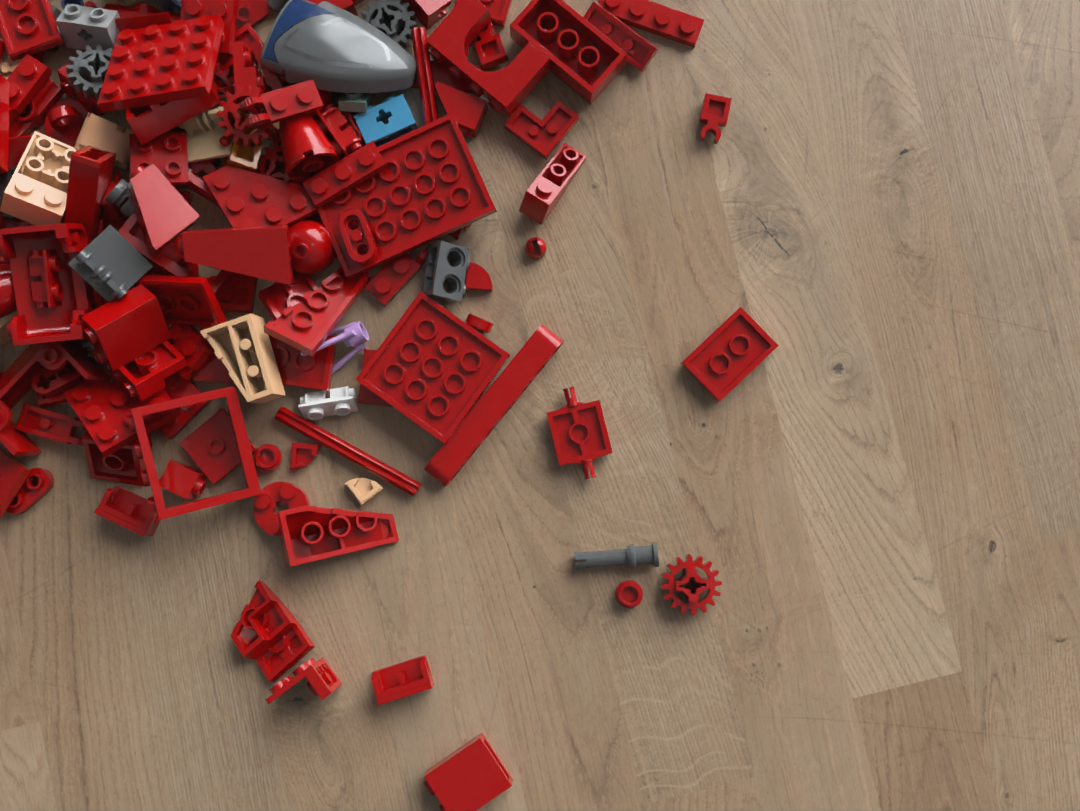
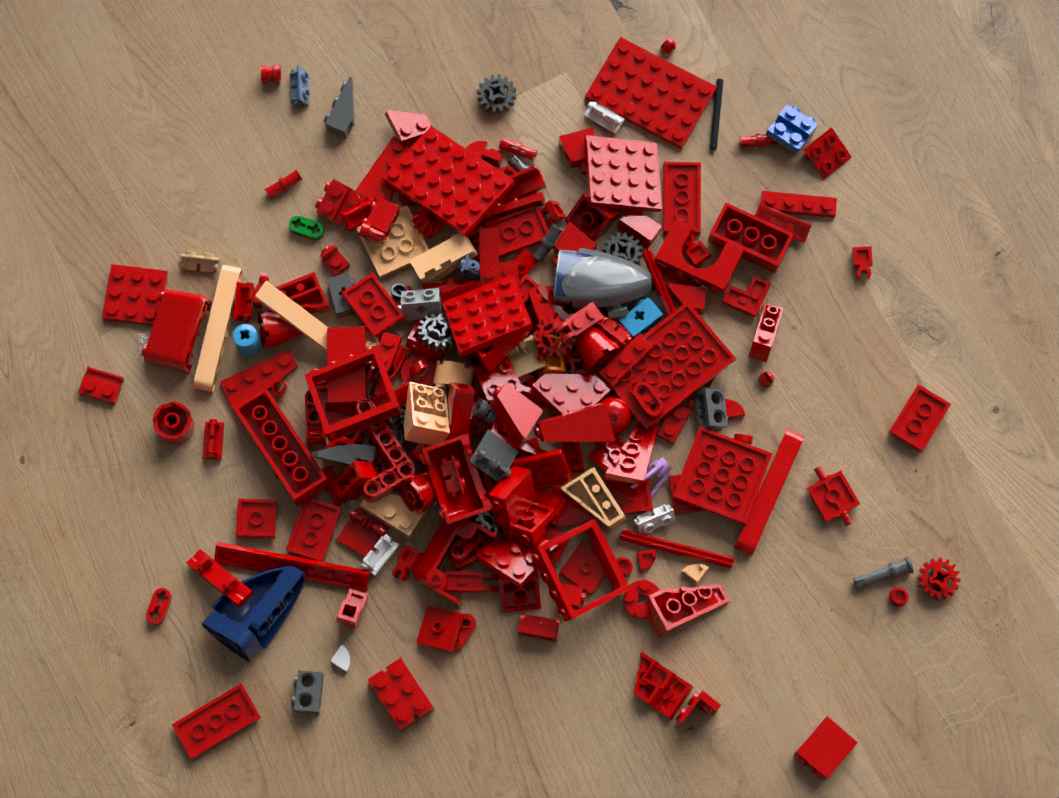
camera: 20 degrees left, 10 degrees down
(402, 680) = (761, 693): red hinge -> none

